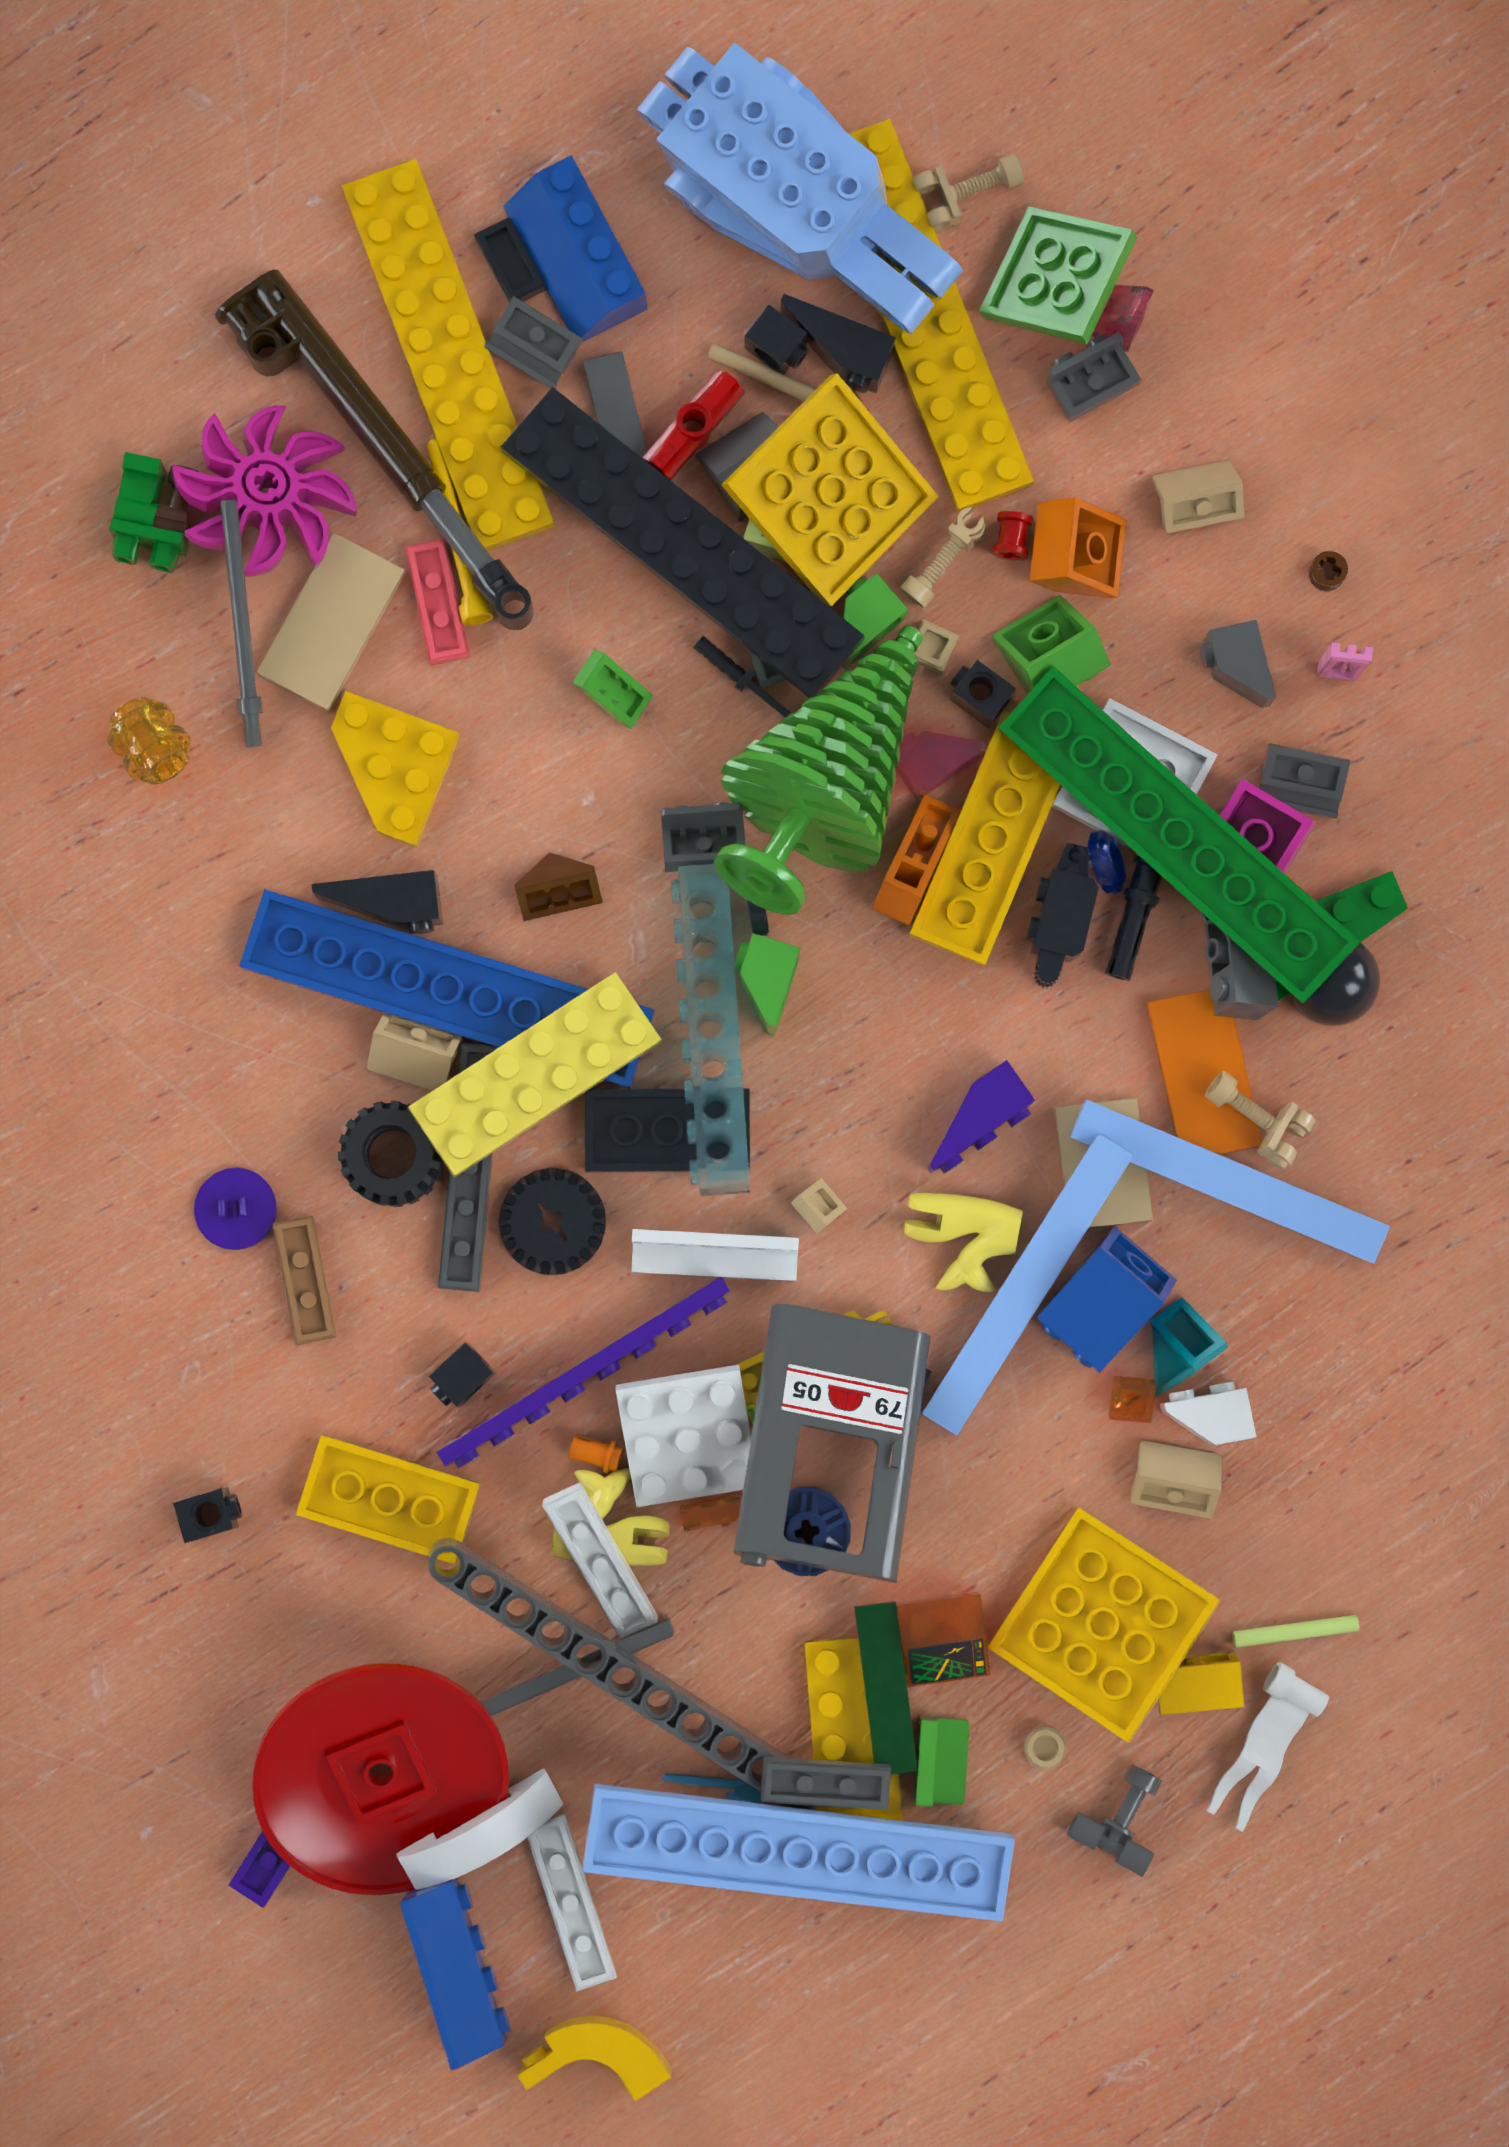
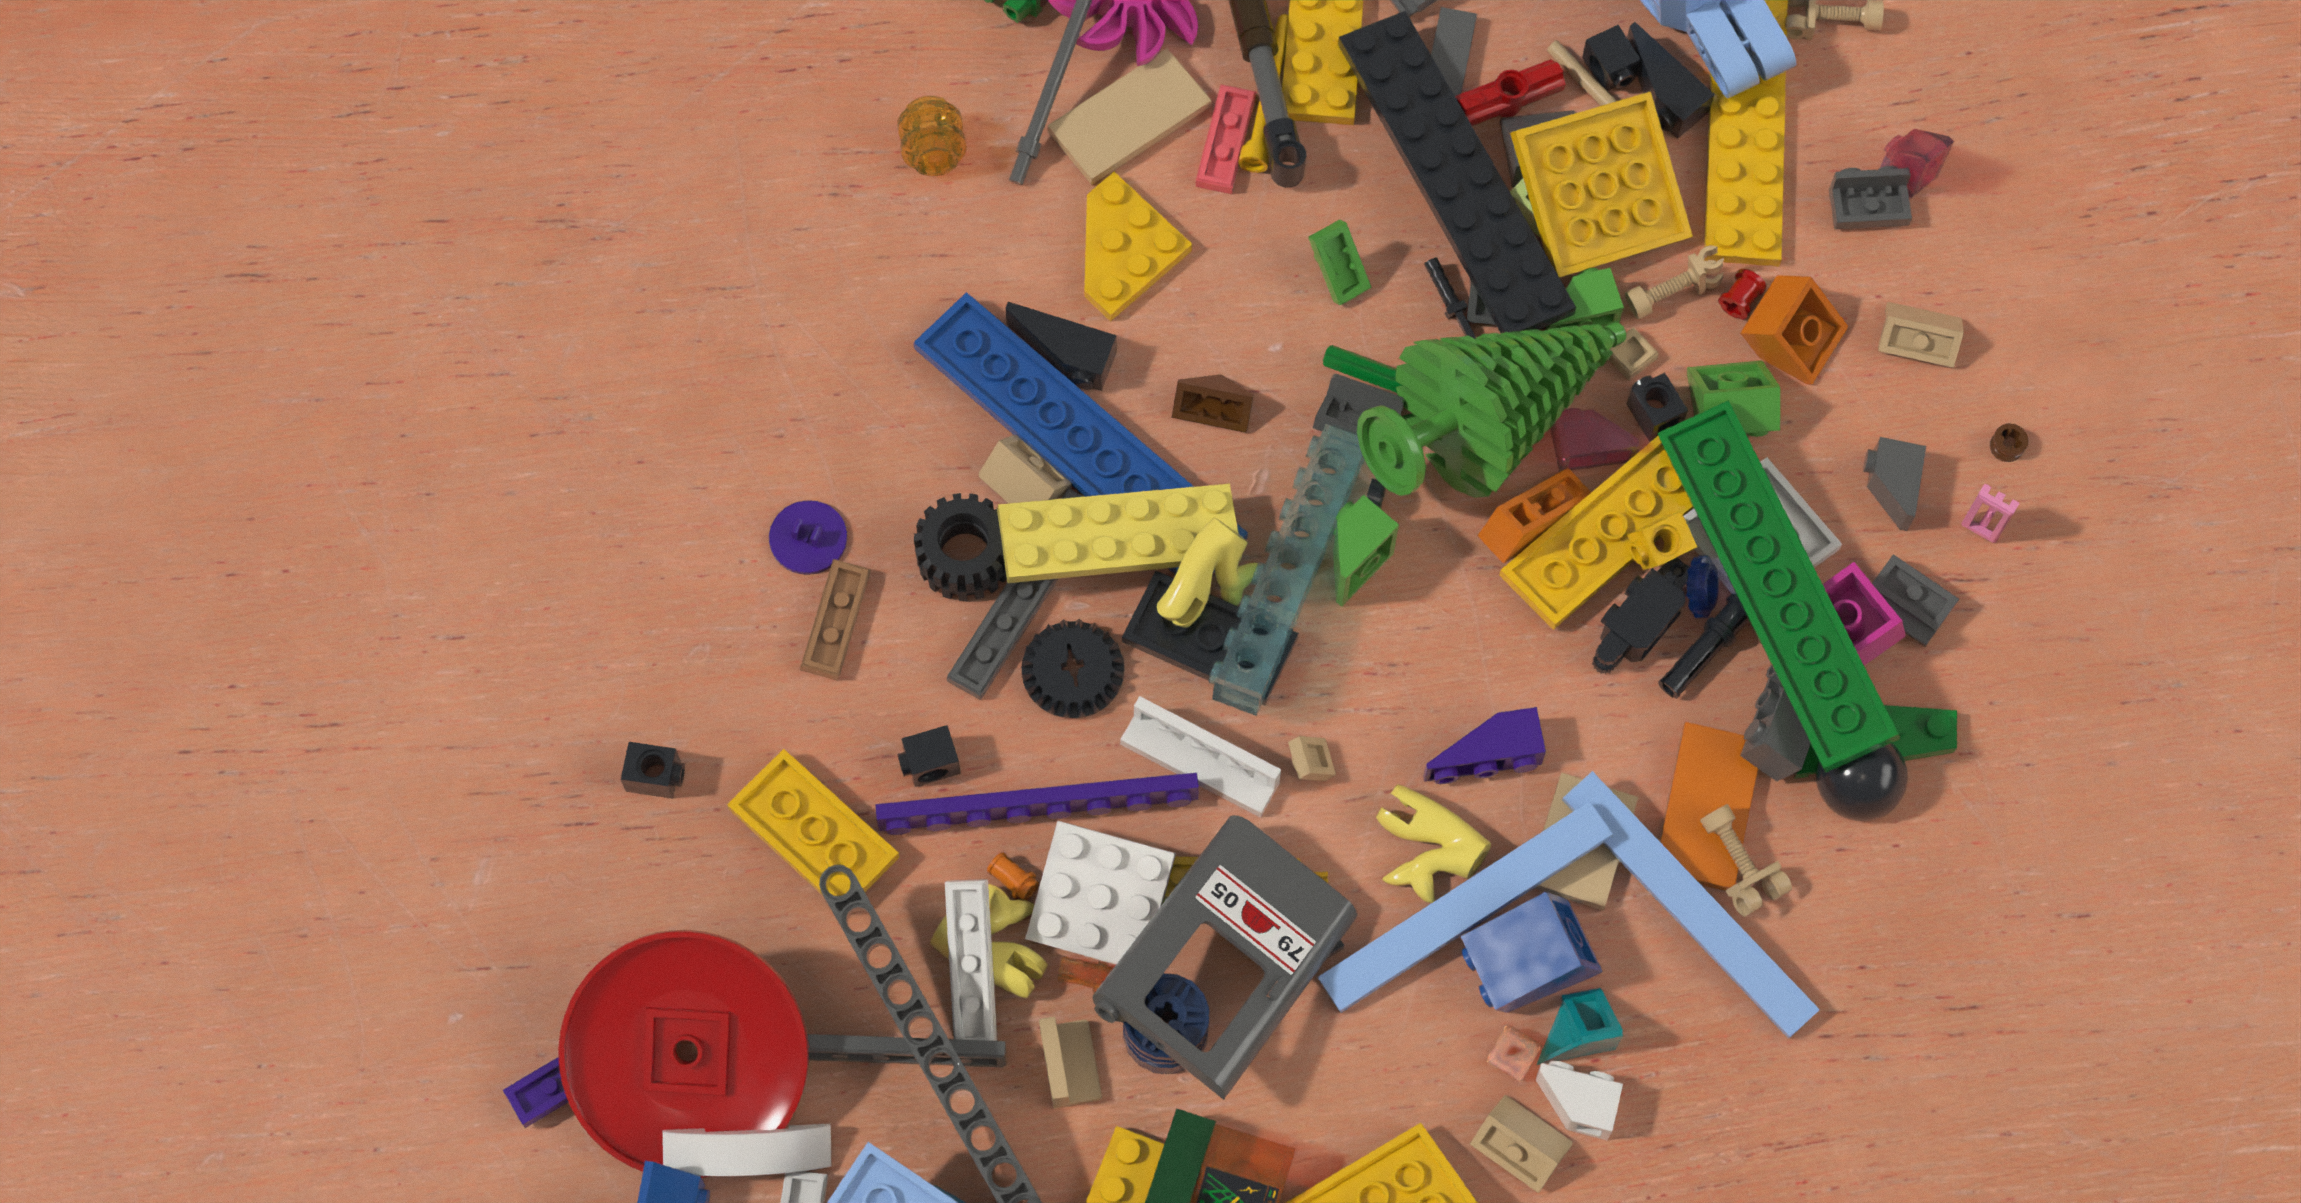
camera: 25 degrees right, 15 degrees down
(638, 1051) = (1213, 549): none -> light yellow piece
(682, 784) = (1361, 367): none -> green axle
(733, 1602) = (1070, 1062): none -> tan panel
(1058, 274) = (1877, 105): bright green plate -> none
(1065, 833) = (1676, 540): none -> yellow brick

